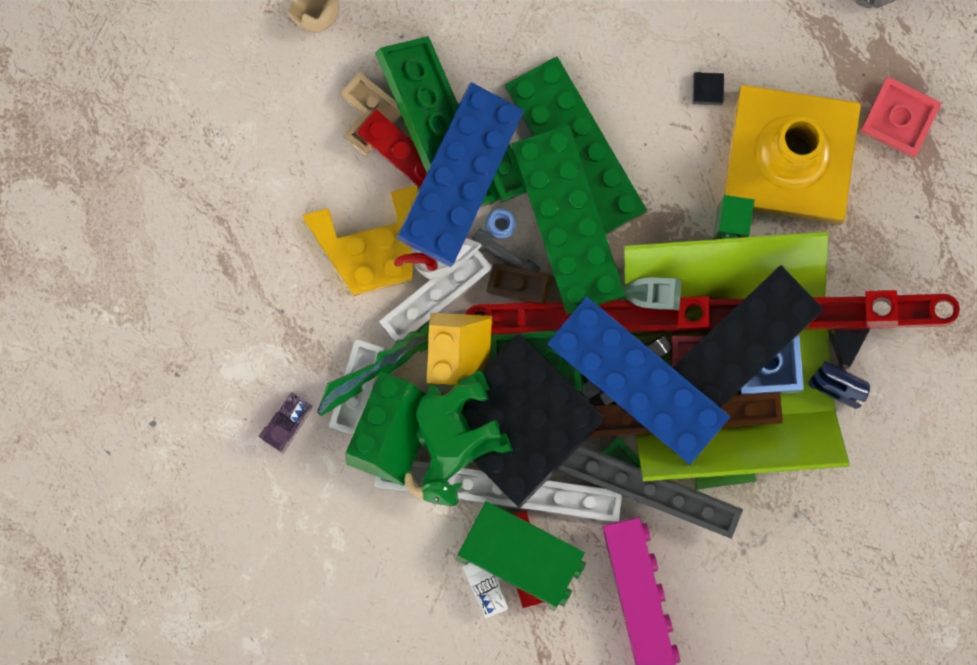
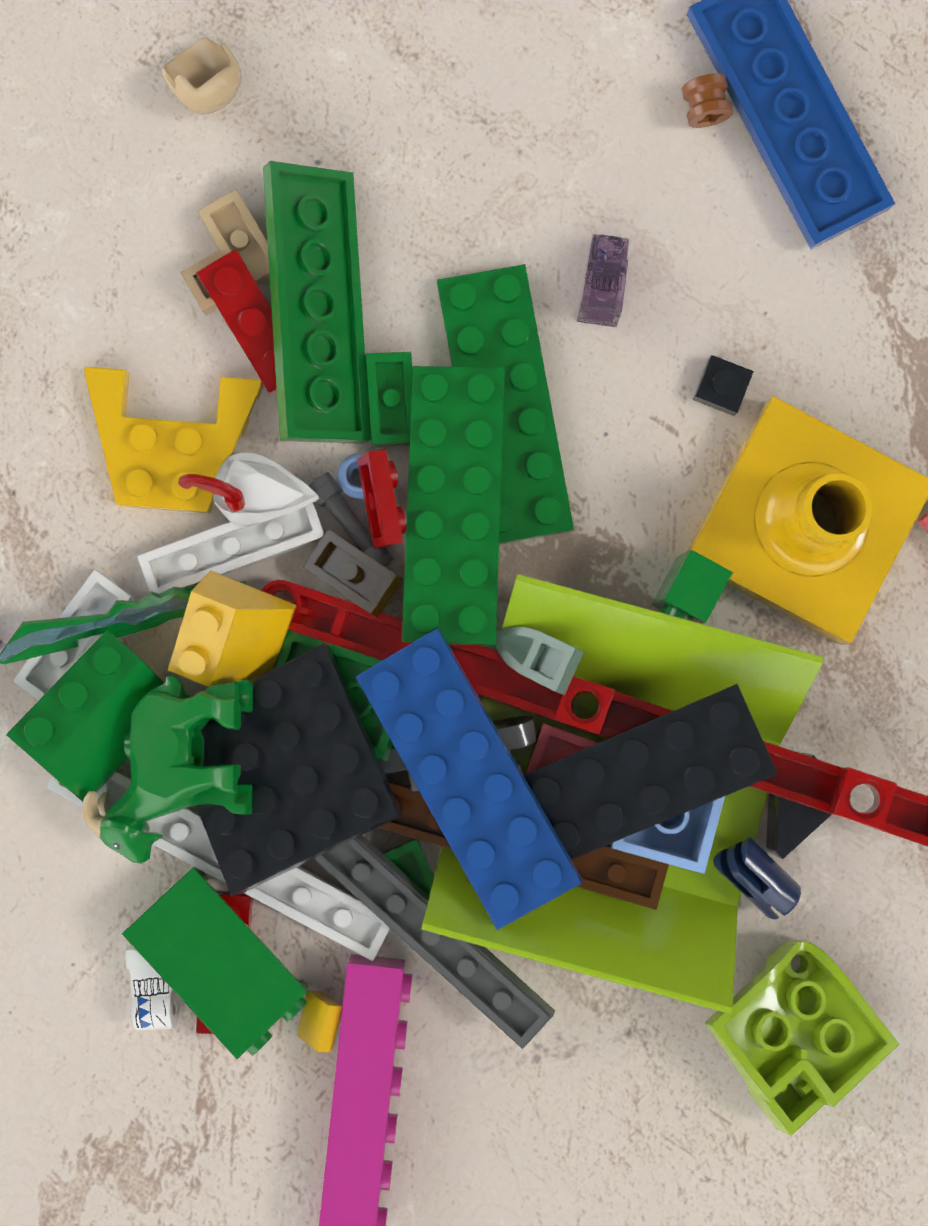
camera: 20 degrees right, 5 degrees up
(460, 175) = (318, 387): blue plate -> none
(522, 234) = (384, 517): none -> red plate
(598, 572) = (319, 1021): none -> yellow tile
(610, 49) = (604, 281): none -> clear purple leg
(900, 473) = (801, 1035): none -> lime slope

